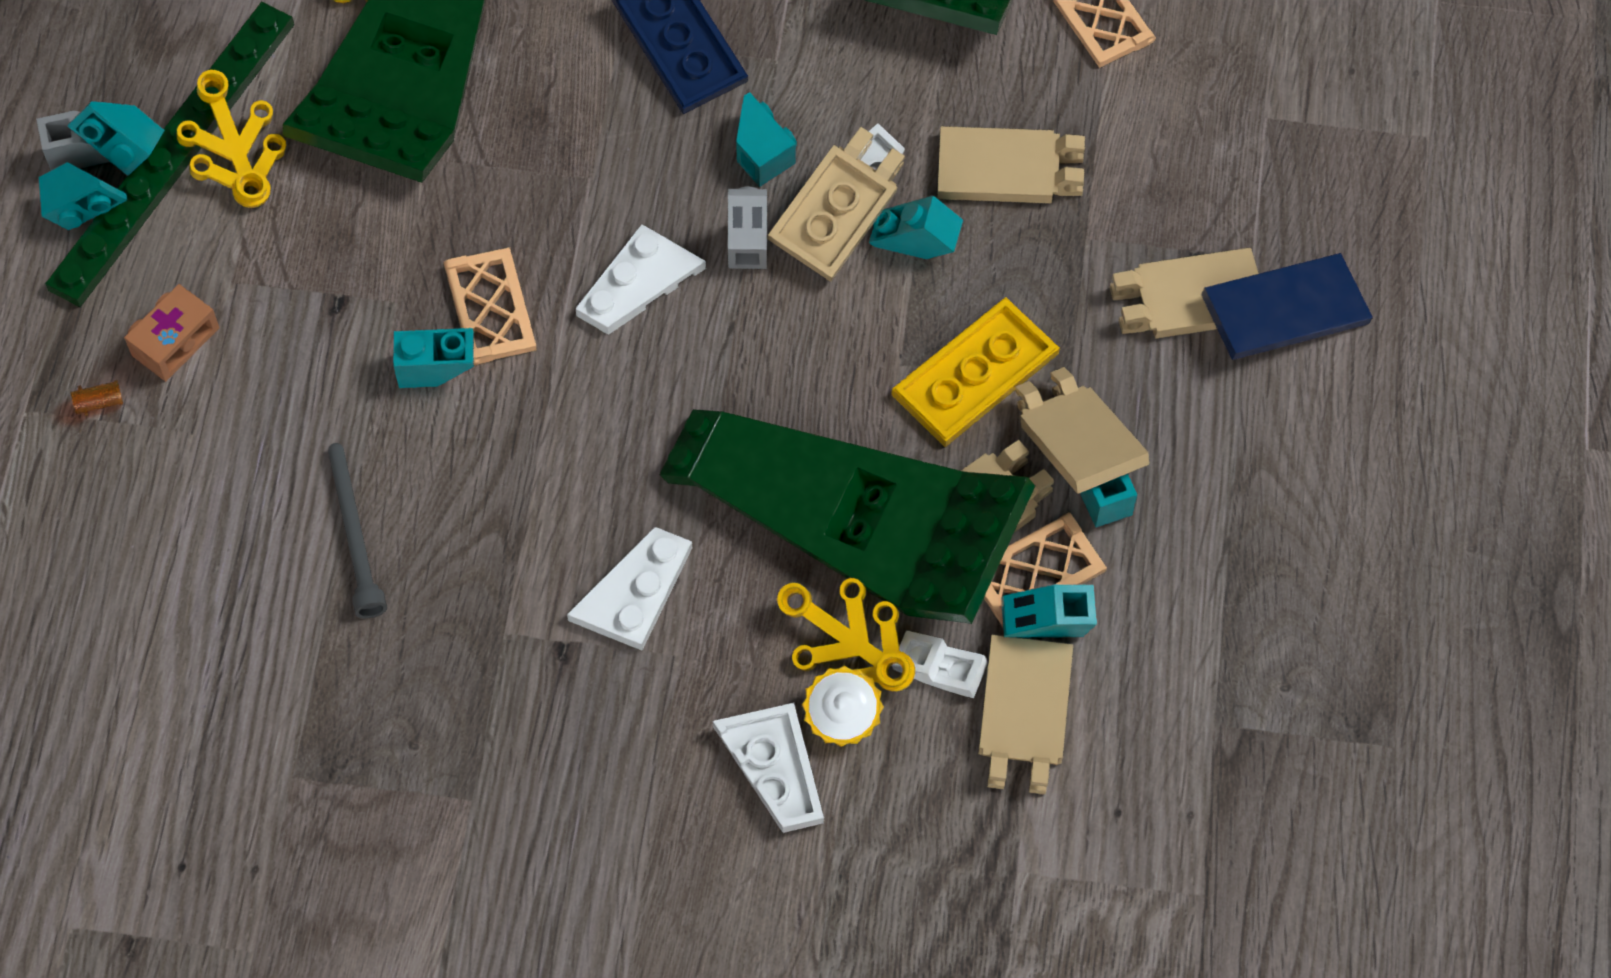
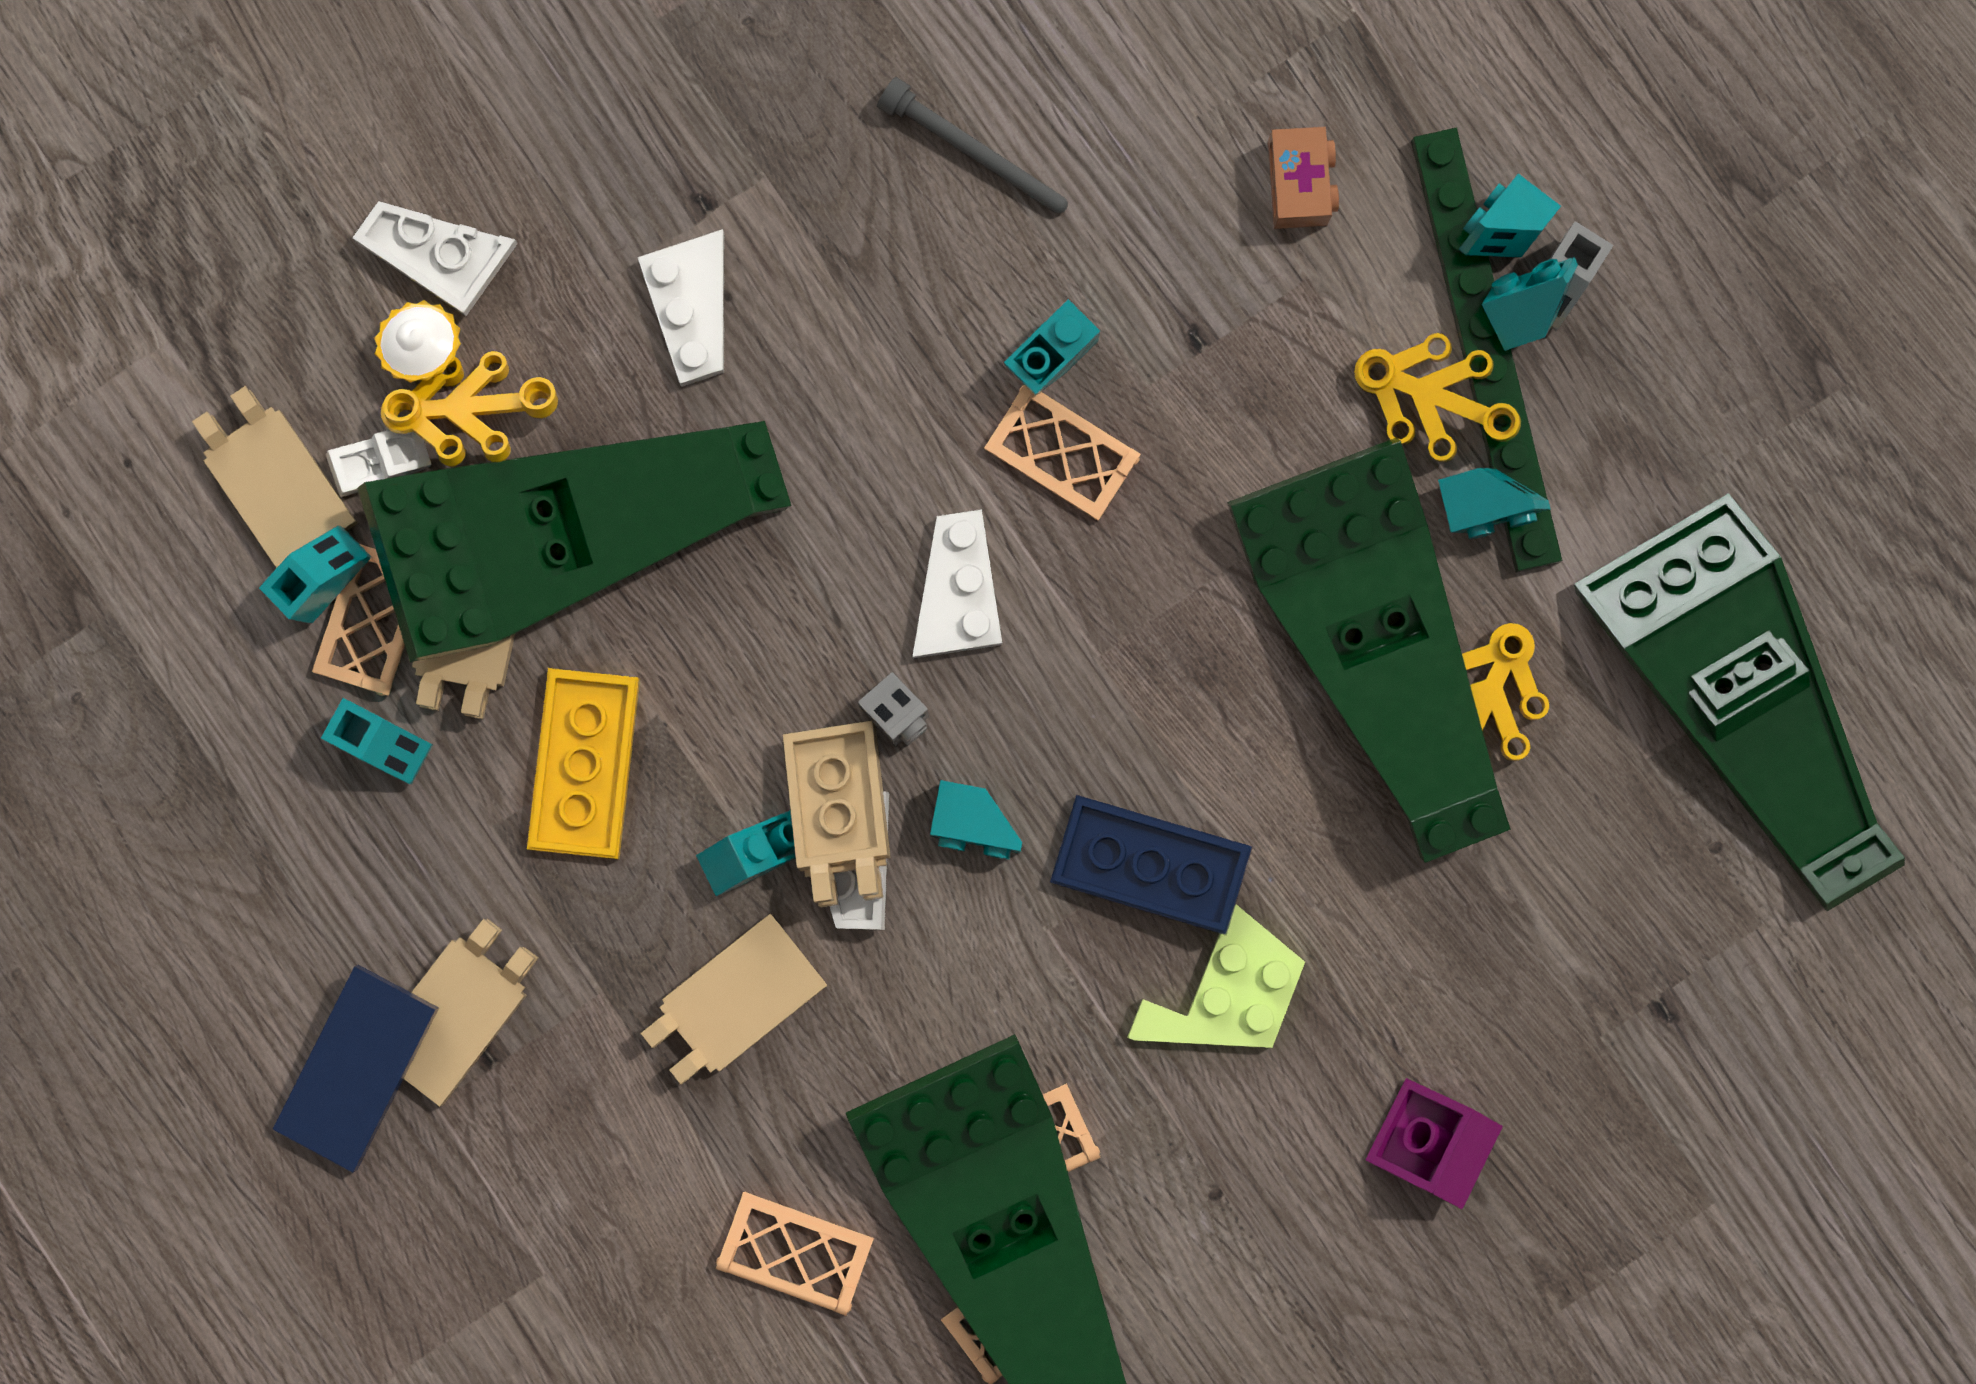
camera: 135 degrees right, 20 degrees up
(96, 397) = (1303, 68): clear orange pin -> none
(267, 56) = (1488, 498): none -> teal slope
(1079, 433) = (423, 759): tan tile -> none

